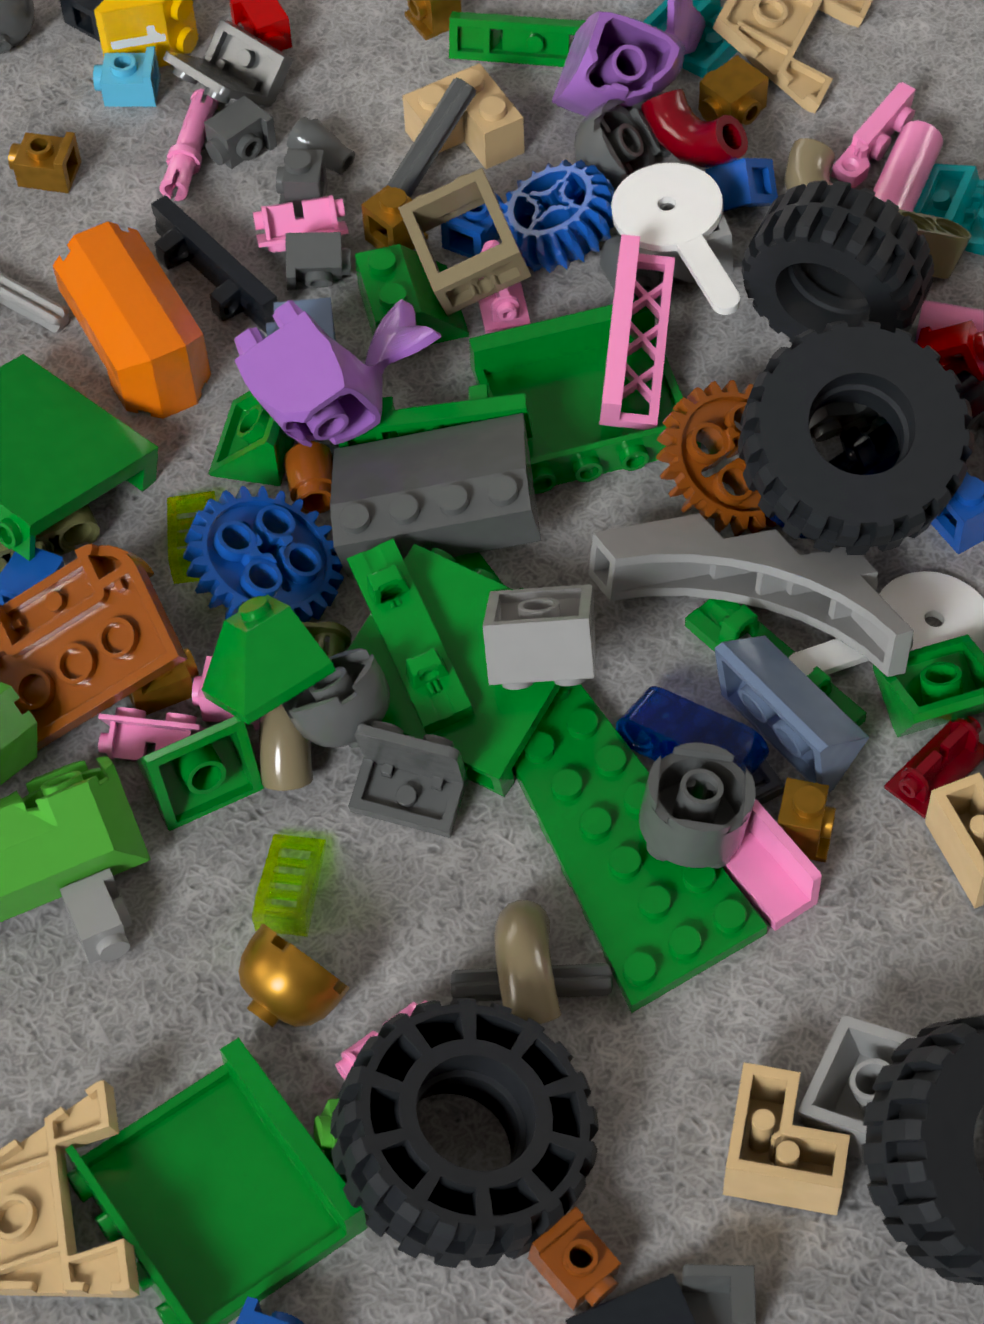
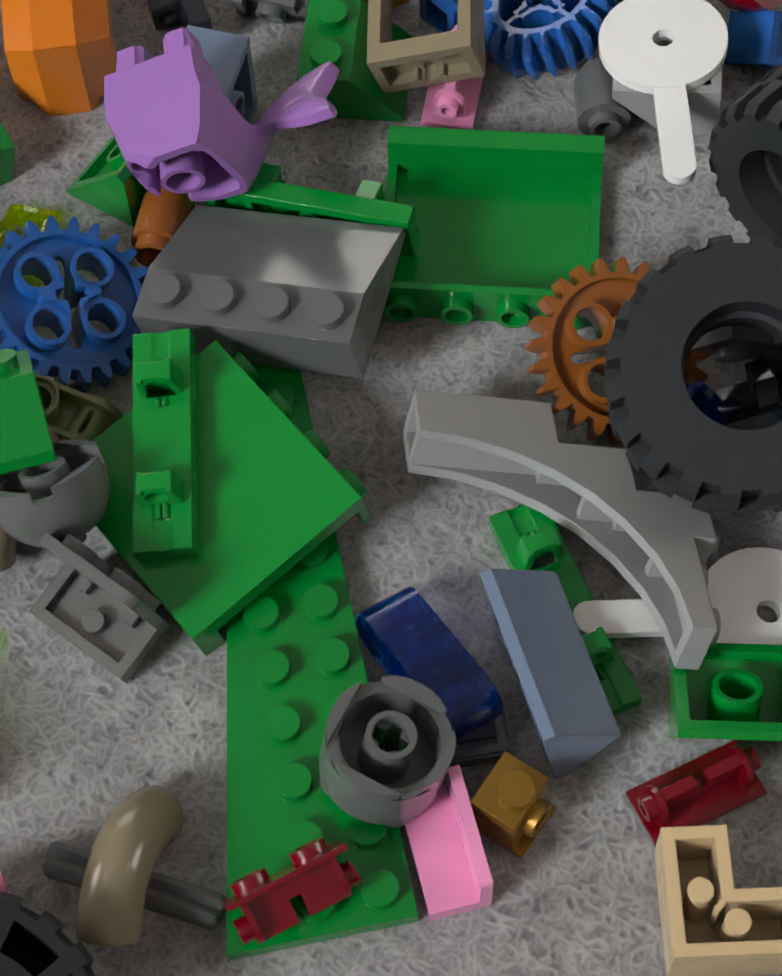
camera: 20 degrees right, 5 degrees up
(540, 636) = (294, 492): light grey slope -> none
(622, 326) = (548, 169): bright pink fence -> none
(649, 947) = (266, 898): none -> dark red hinge

